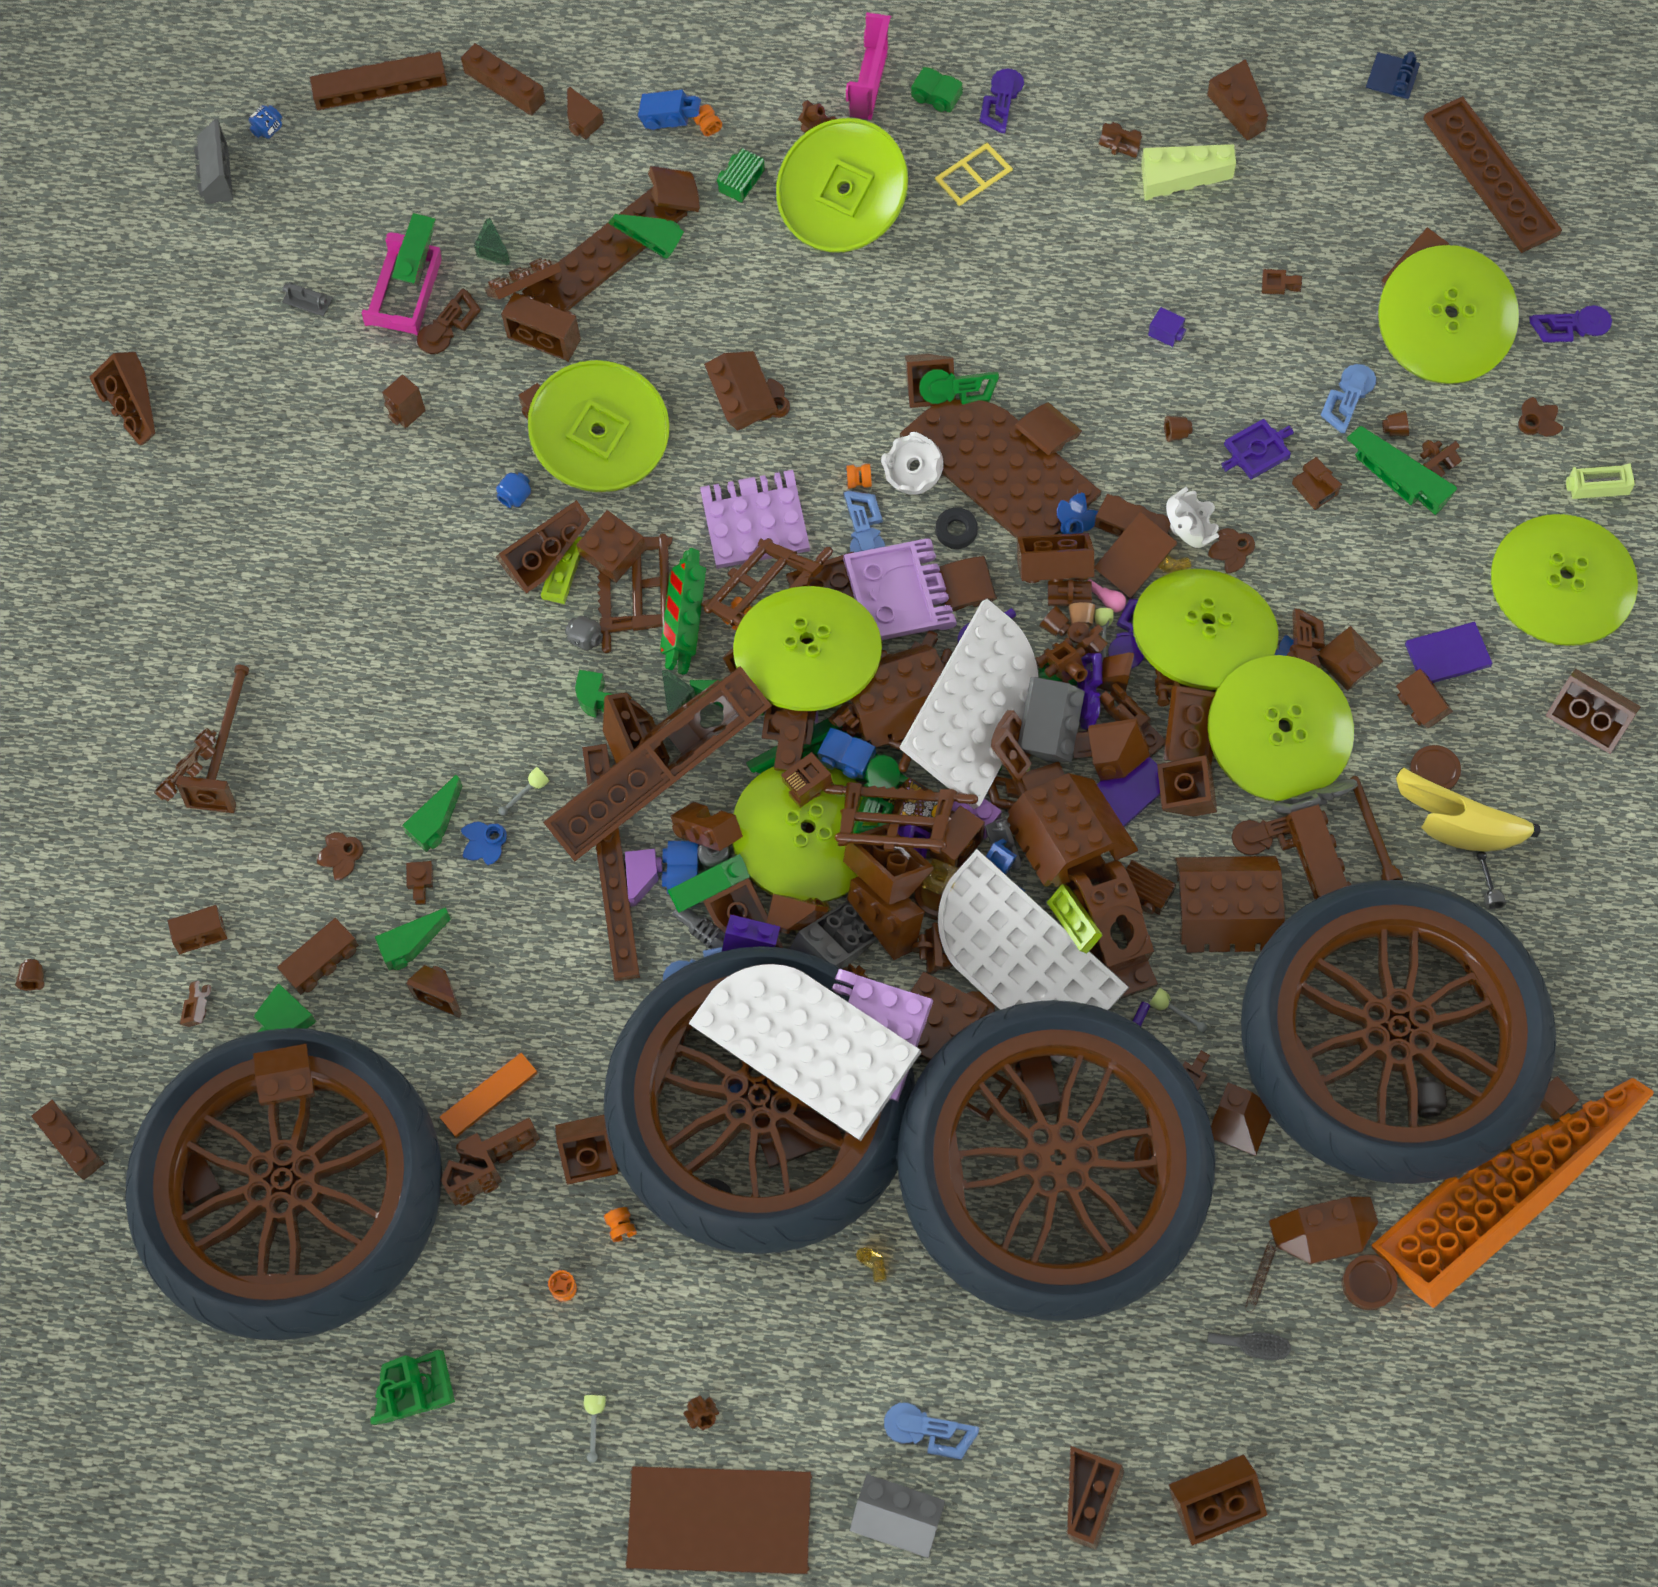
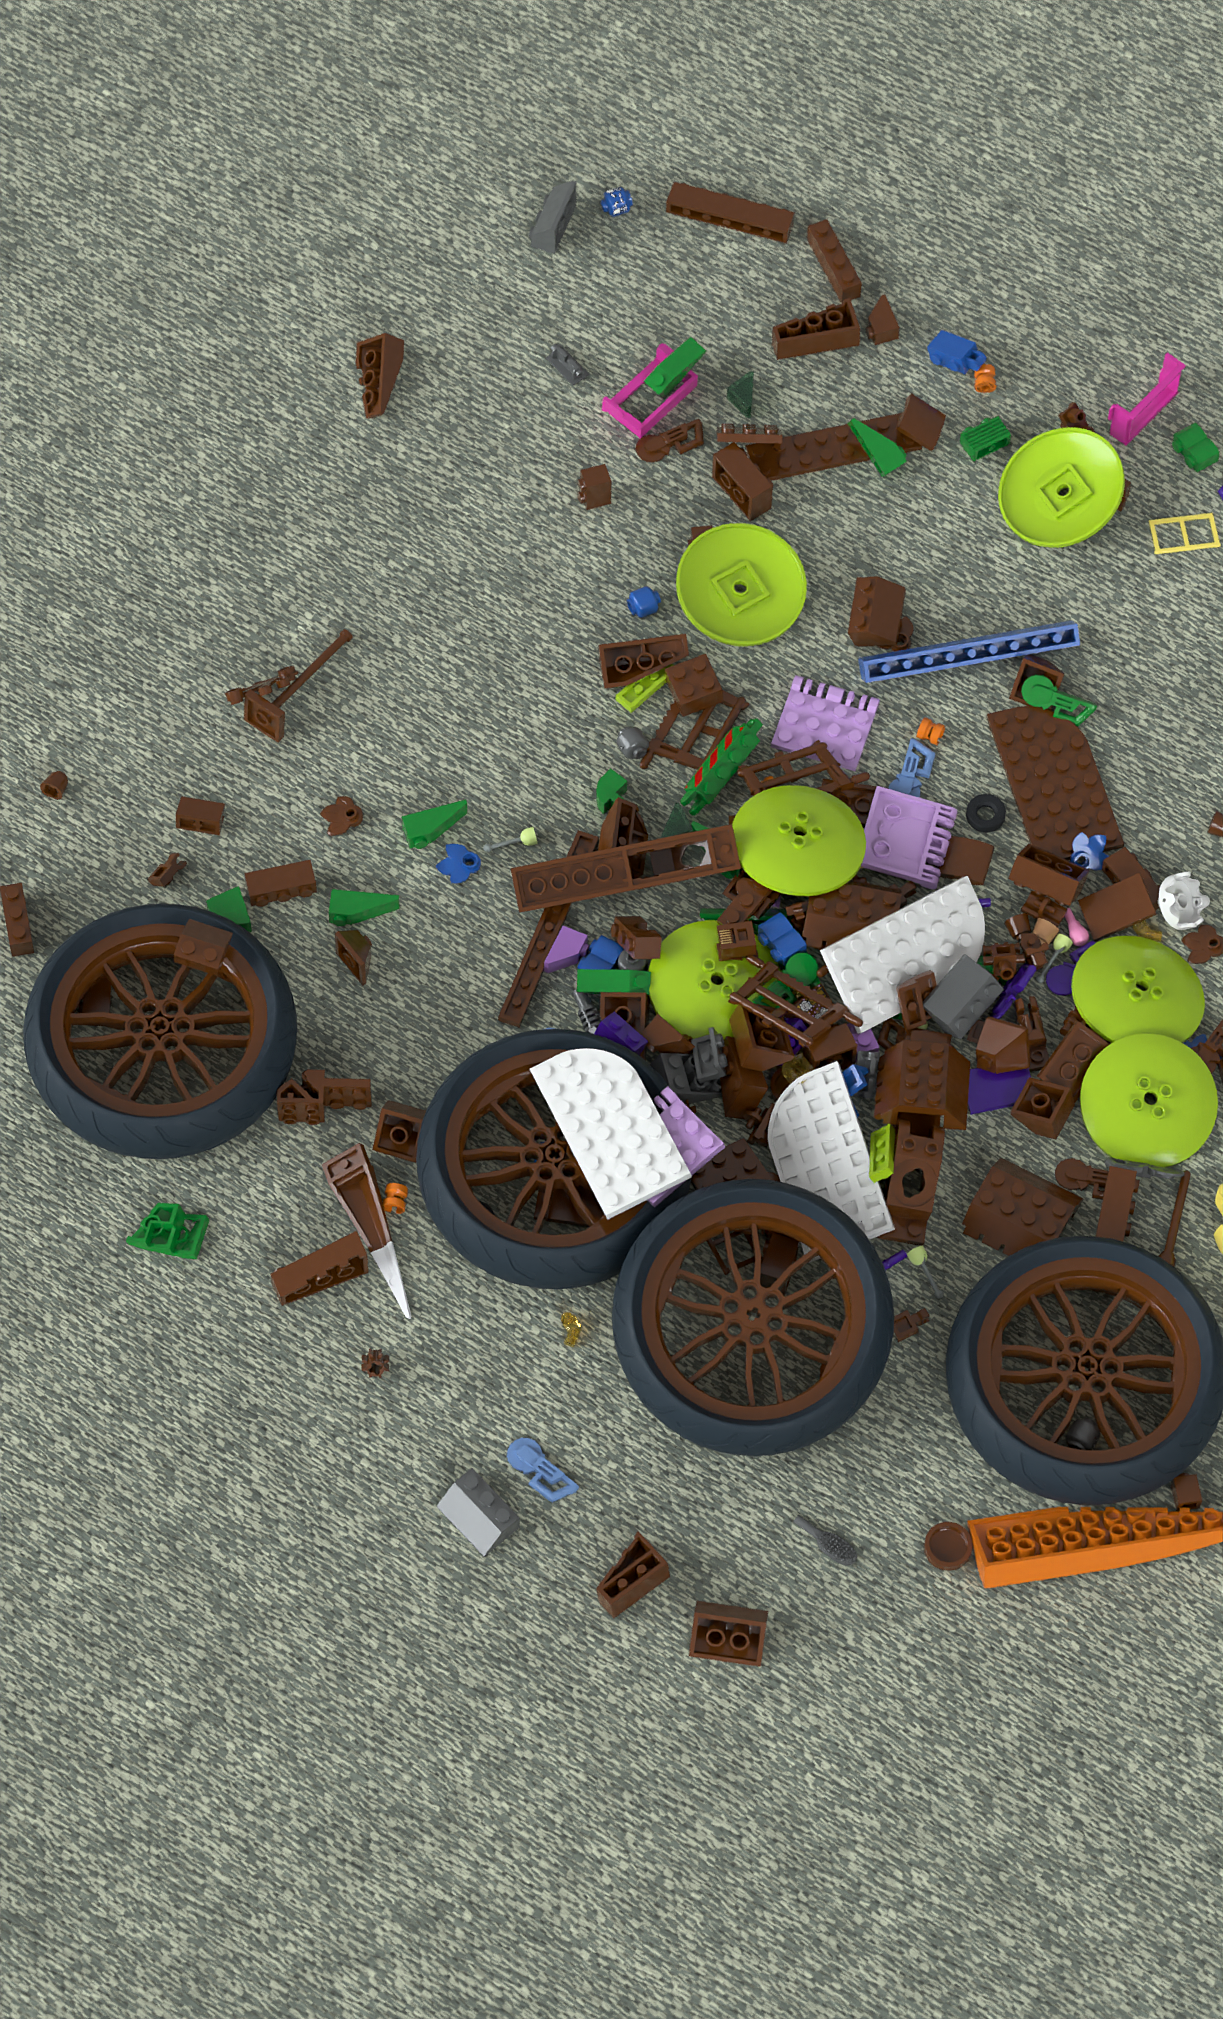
camera: 25 degrees right, 5 degrees down
(418, 877) = (392, 864): reddish brown plate -> none
(488, 1095) = (351, 1053): orange tile -> none
(528, 152) = (817, 332): none -> reddish brown wedge
(558, 1285) = (325, 1213): orange wheel -> none
(578, 1237) = (357, 1189): none -> reddish brown plate
(589, 1344) = (321, 1269): none -> reddish brown wedge
(593, 1405) = (299, 1316): hinge -> none
(719, 1520) = (344, 1447): reddish brown piece -> none
(846, 910) = (708, 1056): none -> dark grey bracket
(848, 382) = (969, 651): none -> blue brick
(898, 461) = (970, 735): white plate -> none
(1048, 428) = (1111, 771): reddish brown slope -> none
(1116, 670) = (1043, 988): reddish brown slope -> none
(1150, 887) = (961, 1167): reddish brown brick -> none
(1240, 1119) = (922, 1375): reddish brown slope -> none
(1264, 1278) = (866, 1494): reddish brown piece -> none
(1326, 1229) = (940, 1489): reddish brown wedge -> none

